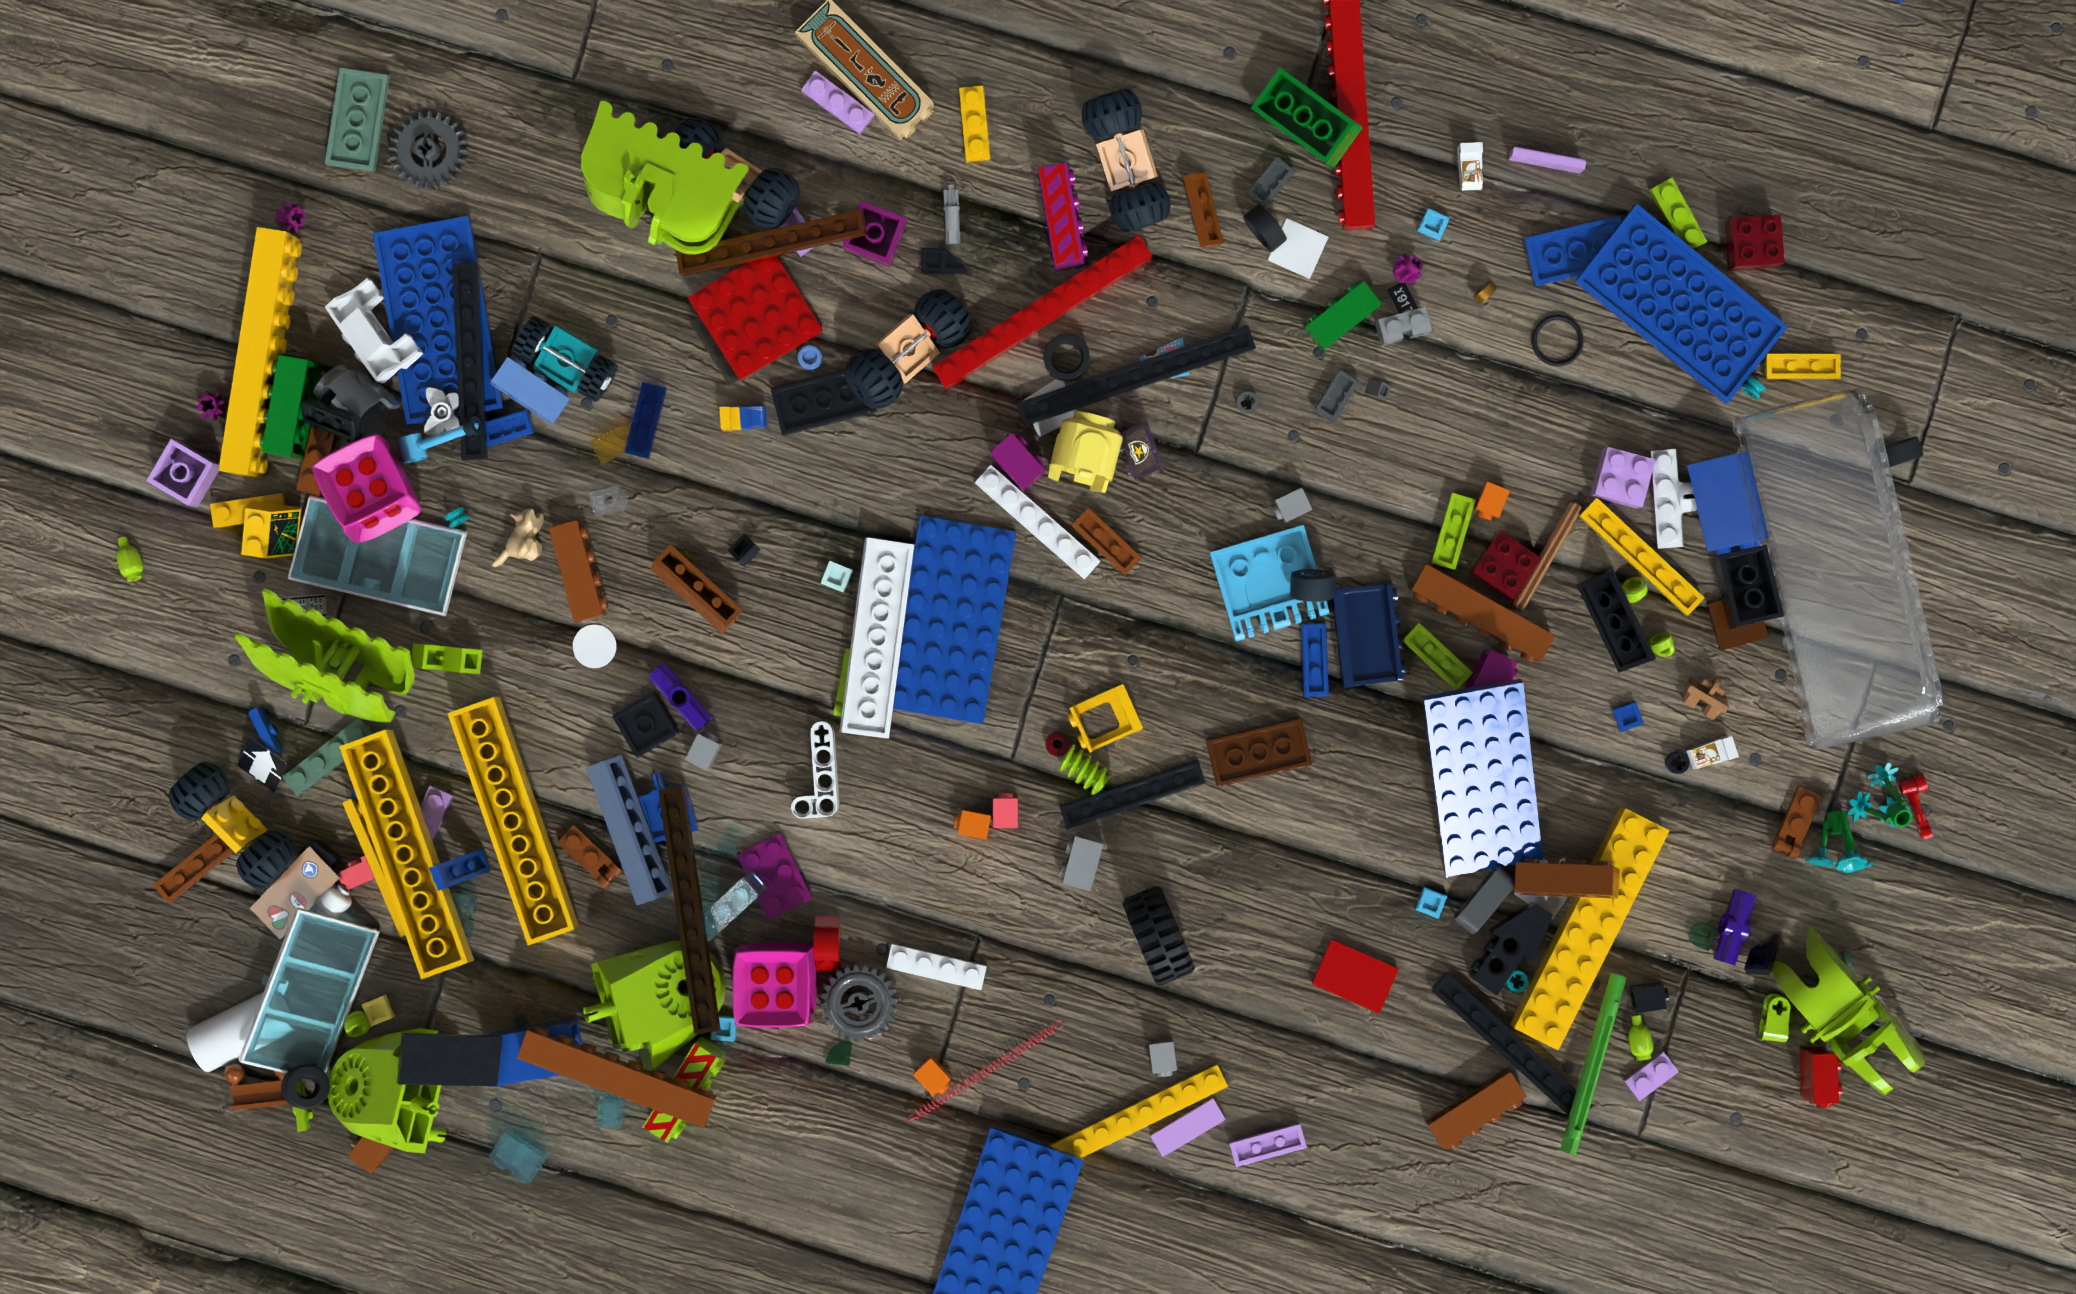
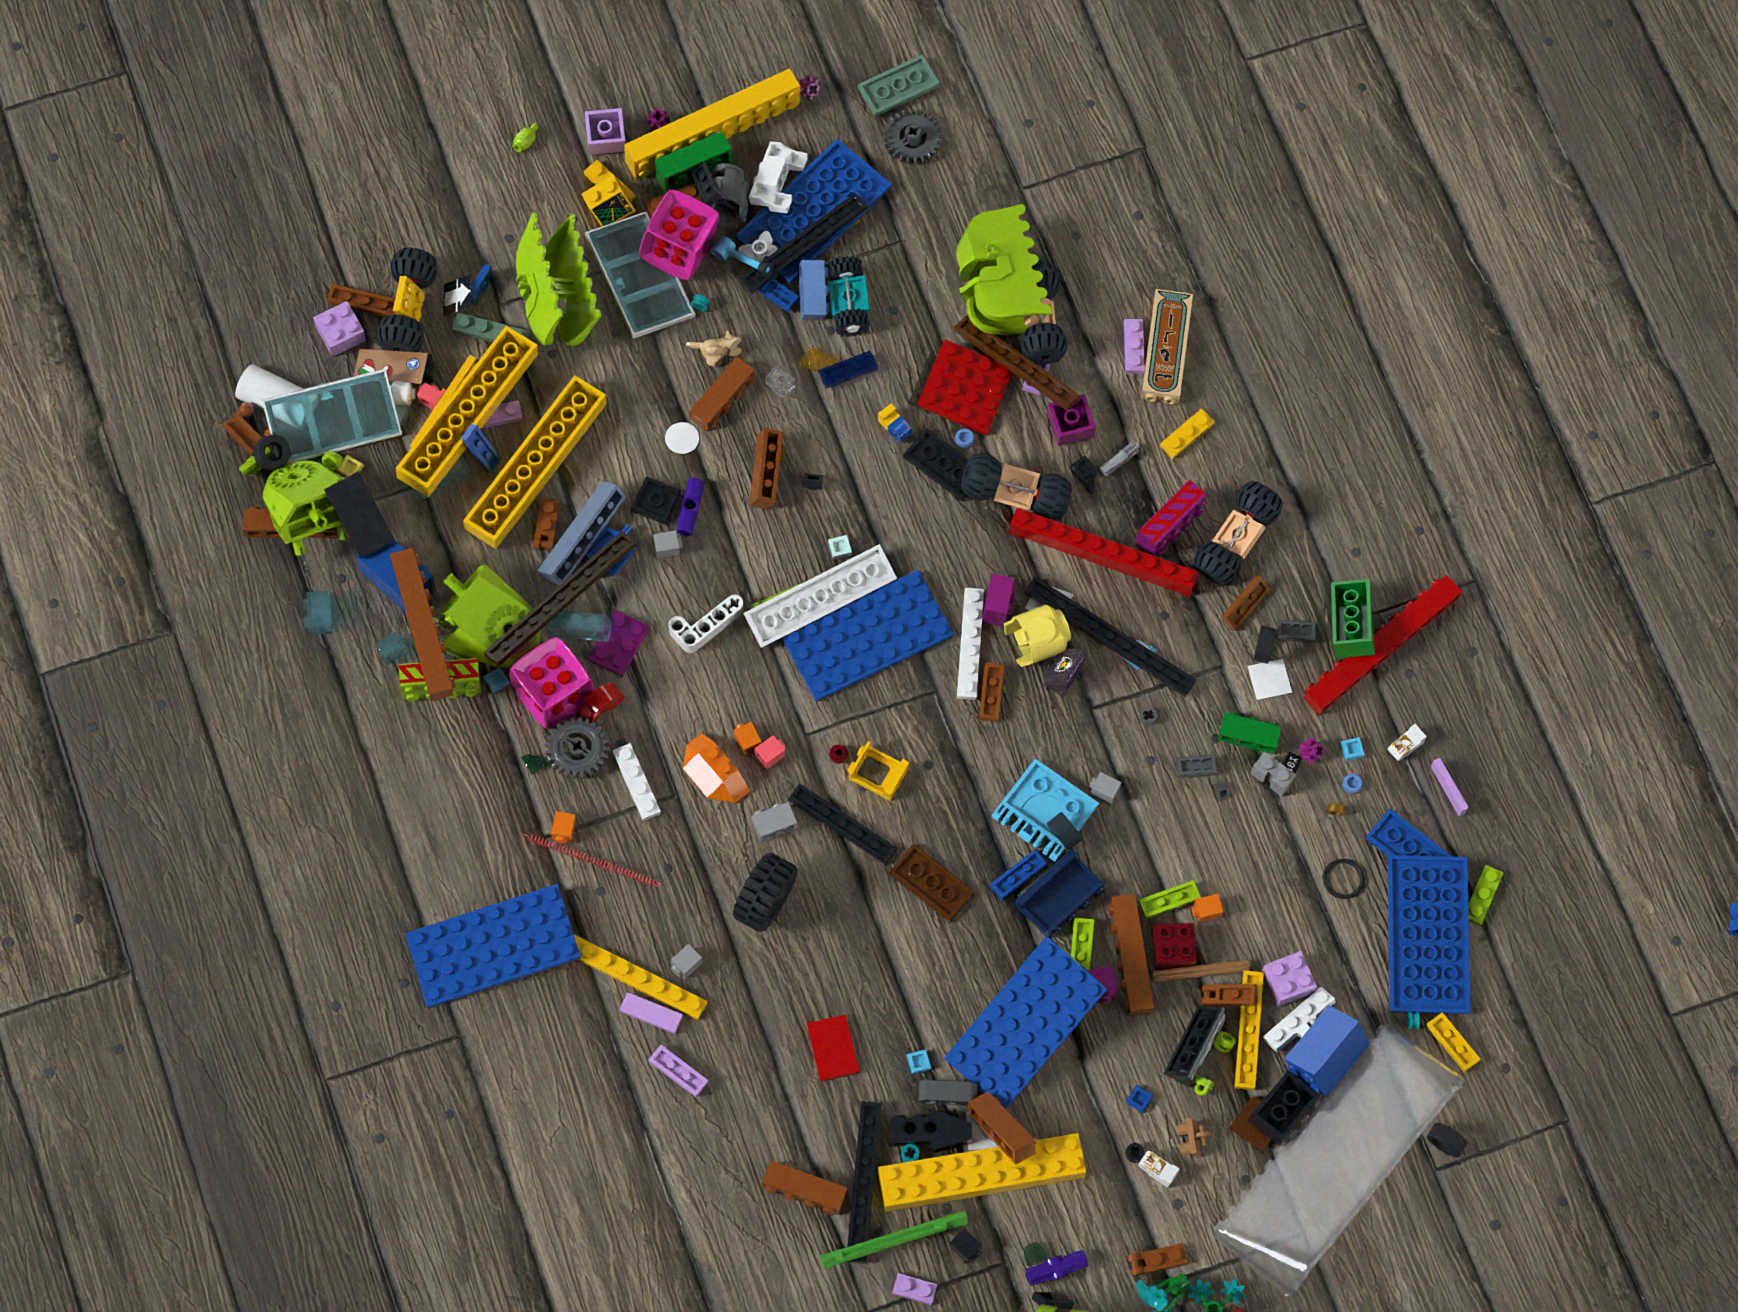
camera: 45 degrees right, 20 degrees down
(211, 914) = (339, 329): none -> lavender brick
(446, 658) = (607, 357): lime brick -> none
(982, 884) = (713, 771): none -> orange wedge
(1070, 339) = (1087, 573): black tyre -> none
(1084, 770) = (834, 780): lime piece -> none
(1468, 253) = (1352, 783): none -> medium blue tile
(1596, 550) = (1229, 995): none -> dark orange plate
(1640, 1039) = (933, 1262): lime plant -> none
(1754, 242) = (1505, 952): dark red brick -> none

